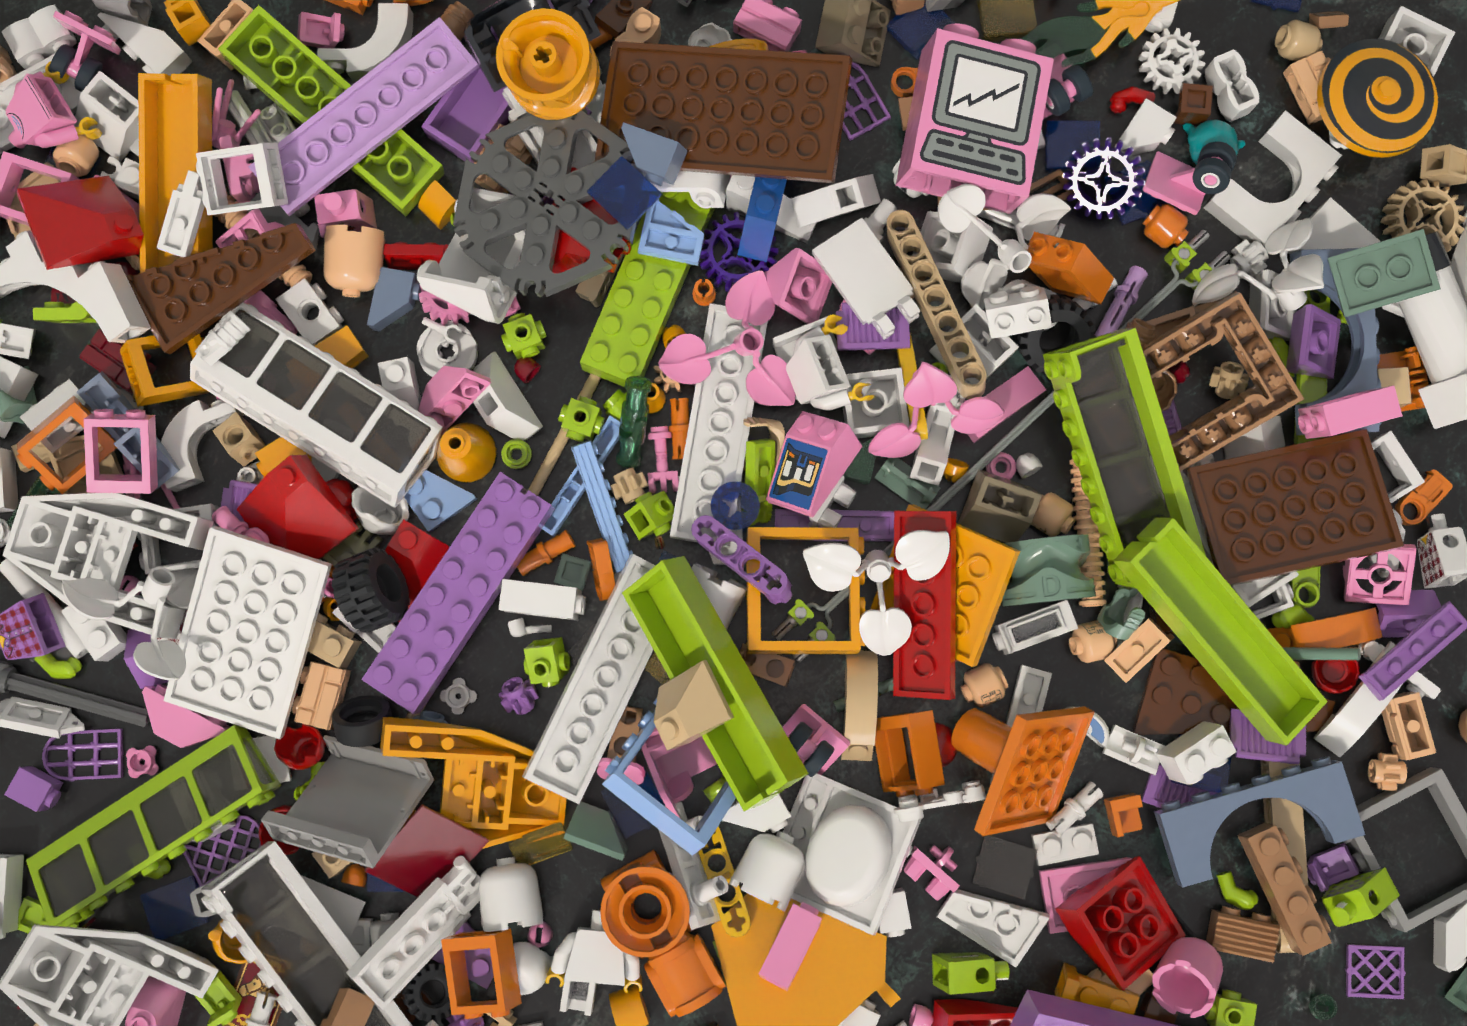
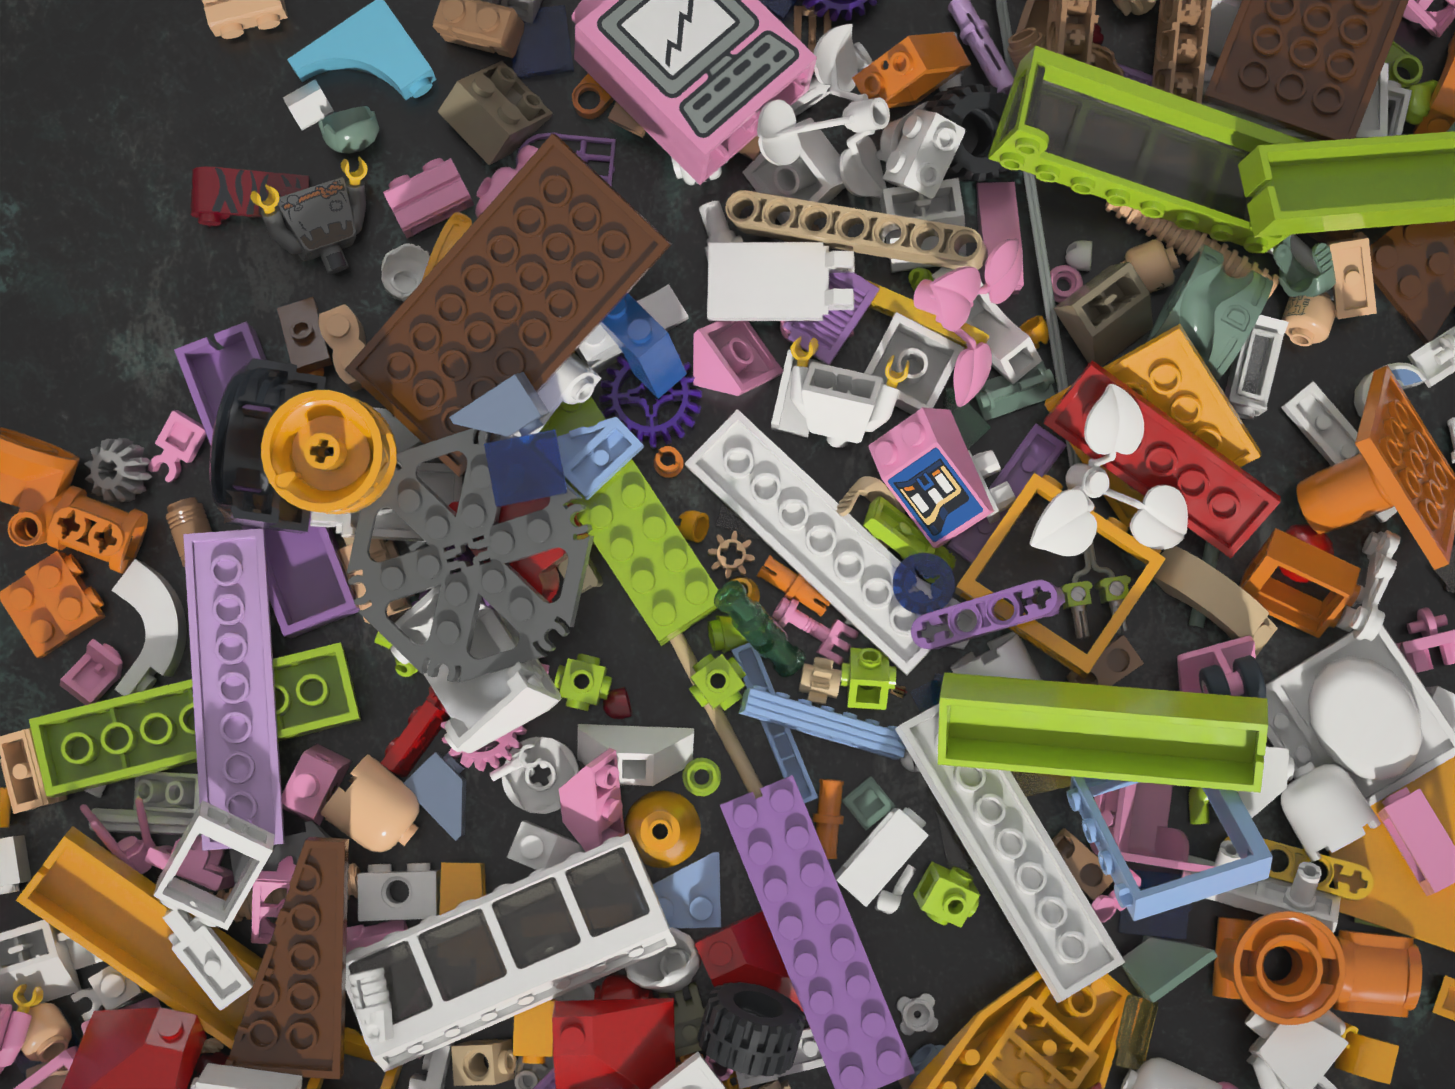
camera: 60 degrees left, 0 degrees up
(437, 204) = (376, 676): light orange brick -> none
(518, 695) = (962, 949): medium lavender gear -> none
(602, 568) = (888, 768): orange piece -> none
(690, 706) = (1113, 773): tan slope -> none
(752, 303) = (719, 417): bright pink plant -> none
(835, 200) = (665, 279): white slope -> none
(984, 685) = (1280, 458): light nougat head -> none

